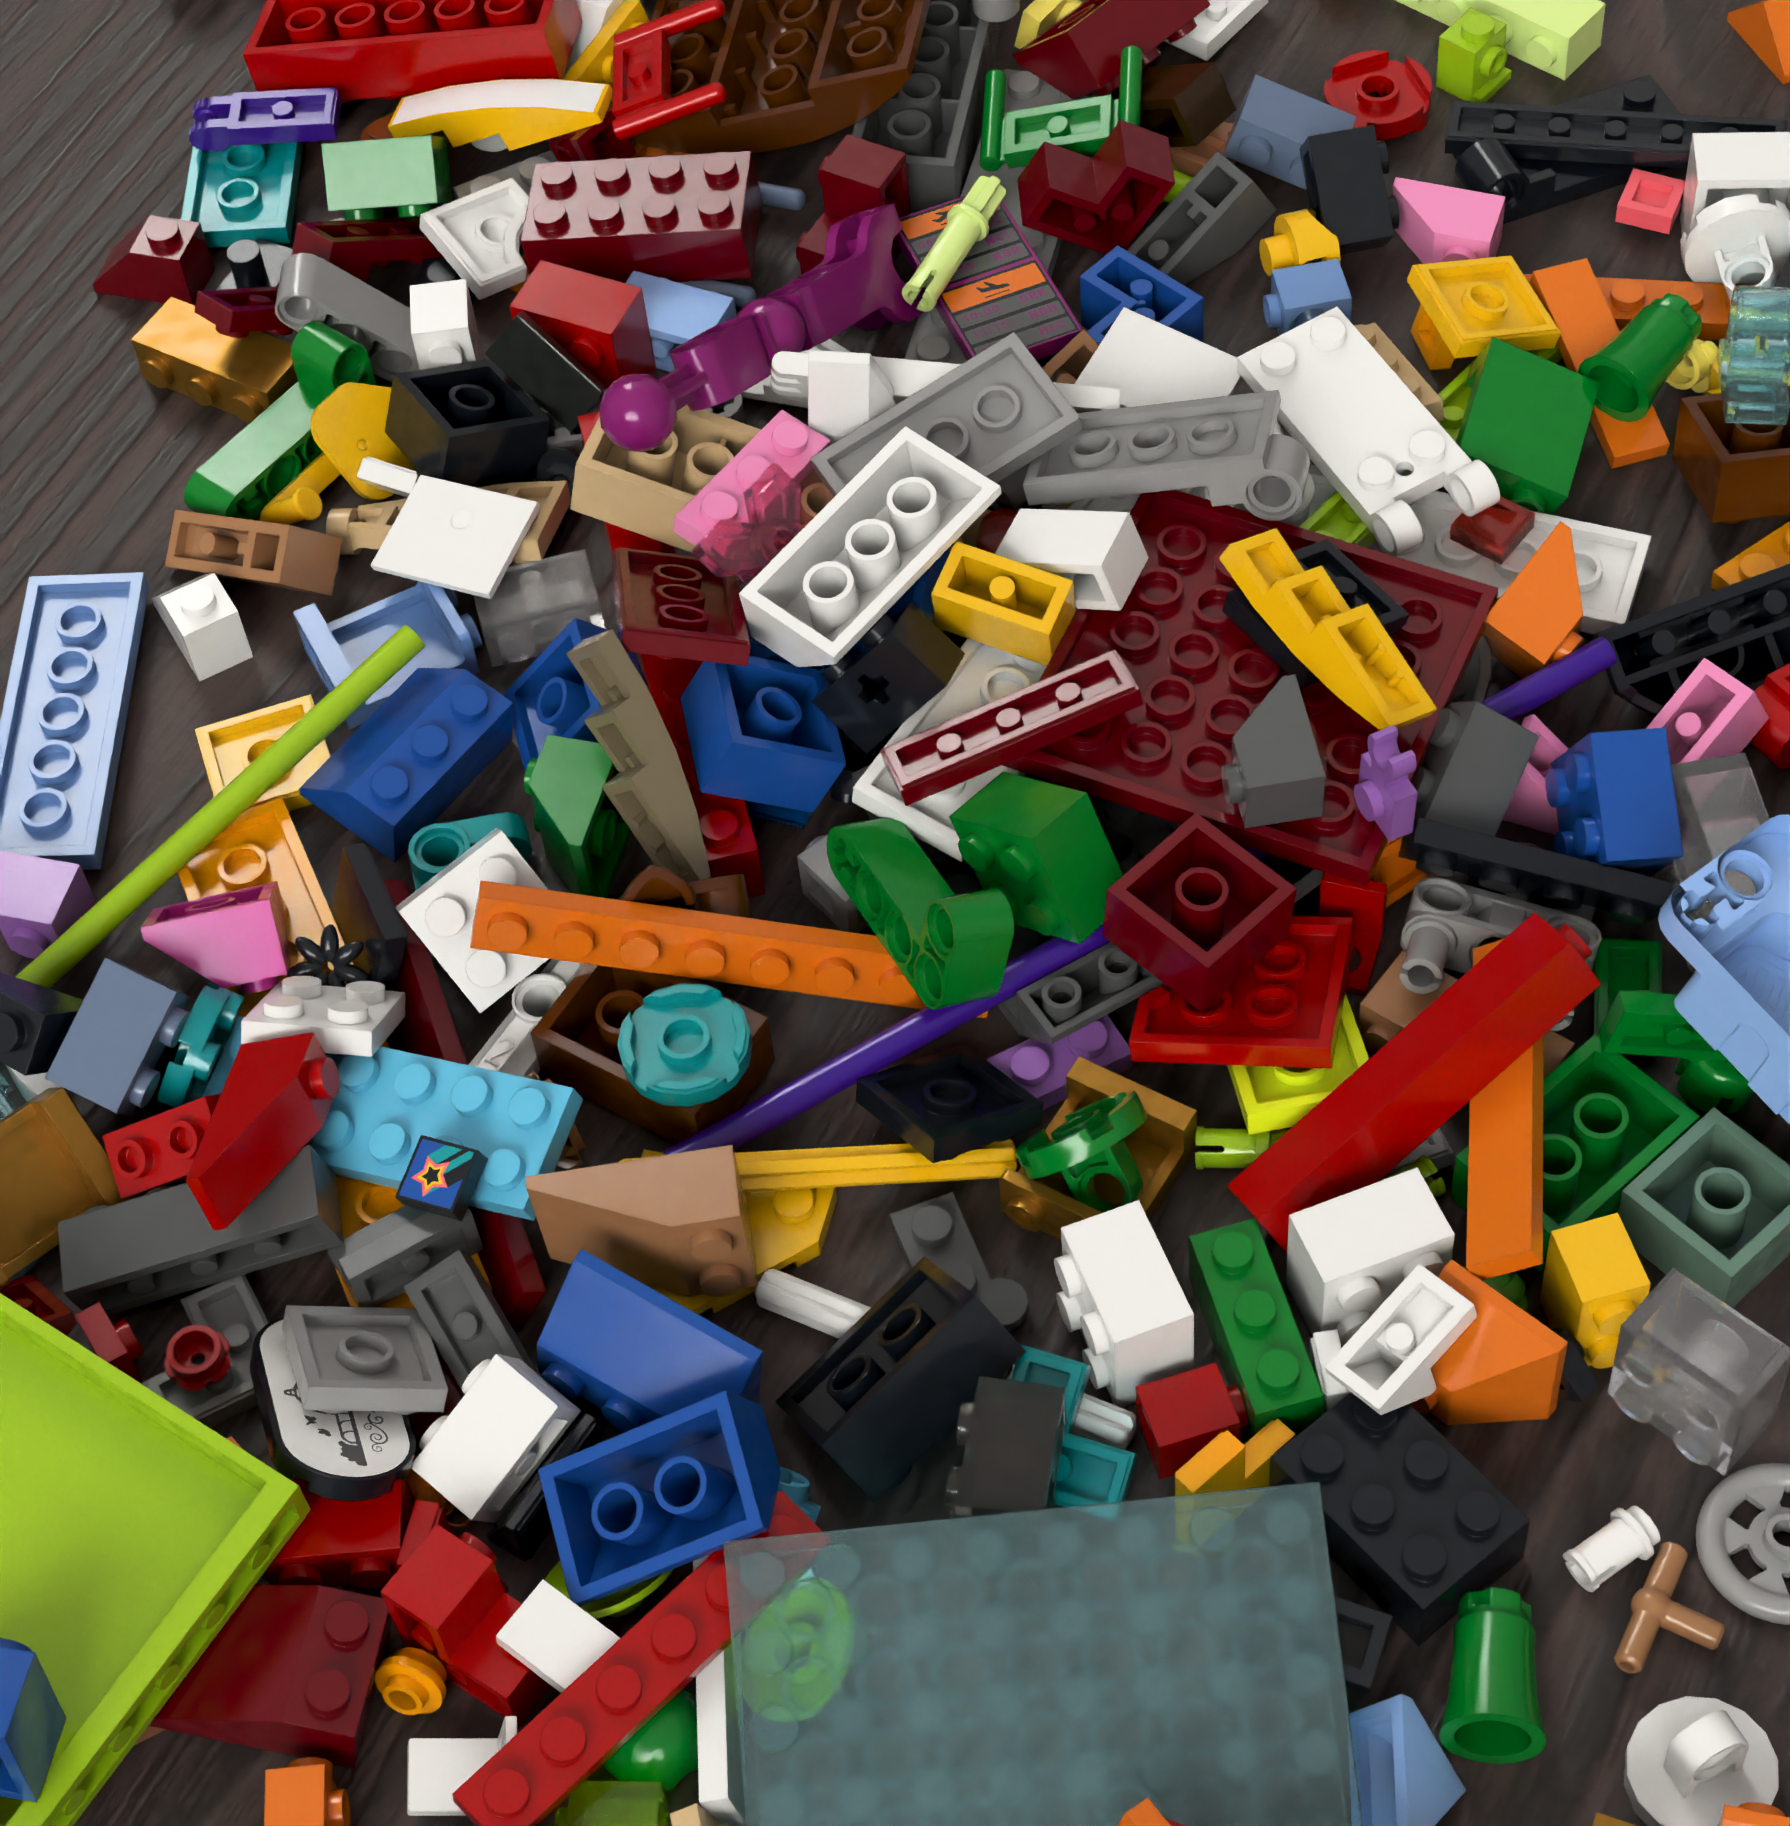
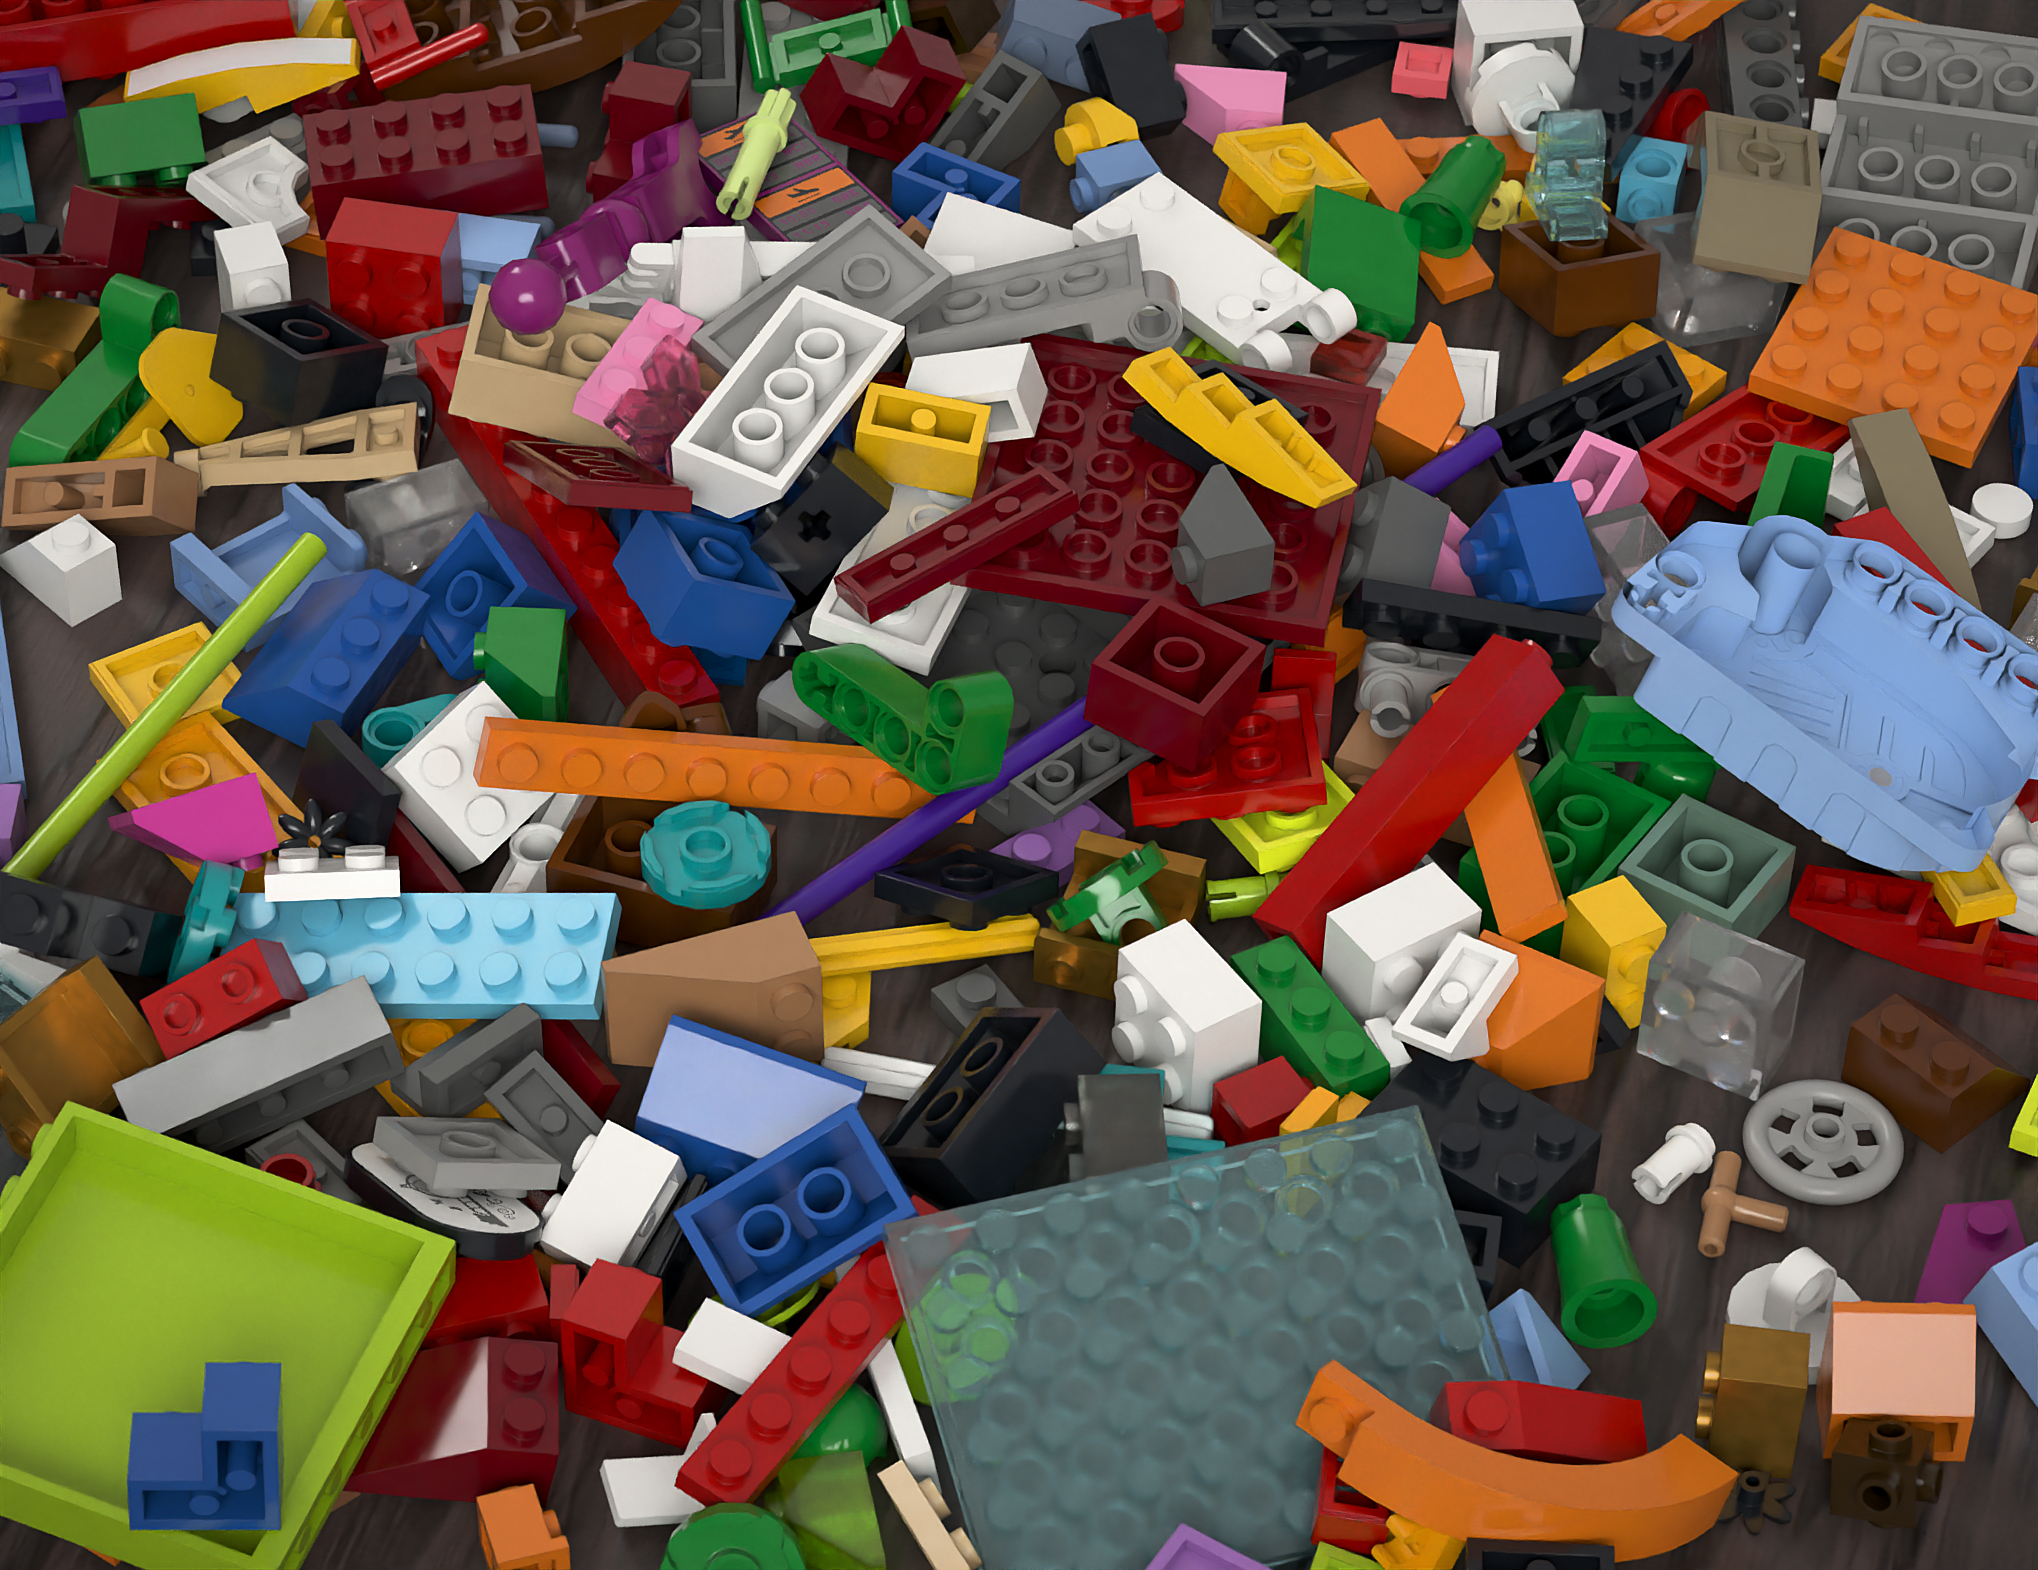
camera: 20 degrees left, 10 degrees down
(119, 1038) = (140, 906): sand blue brick -> none
(261, 1121) = (317, 952): red slope -> none
(323, 292) = (112, 245): light grey beam -> none
(387, 476) = (232, 416): white tile -> none
(412, 1681) = (593, 1407): light orange plate -> none
(441, 1178) = (506, 984): tile -> none
(455, 536) = (324, 456): white piece -> none
(546, 370) = (373, 300): pearl dark grey slope -> none
(650, 781) = (587, 589): dark tan slope -> none
(1040, 852) = (1023, 635): green brick -> none
(1384, 785) = (1327, 549): medium lavender plate -> none

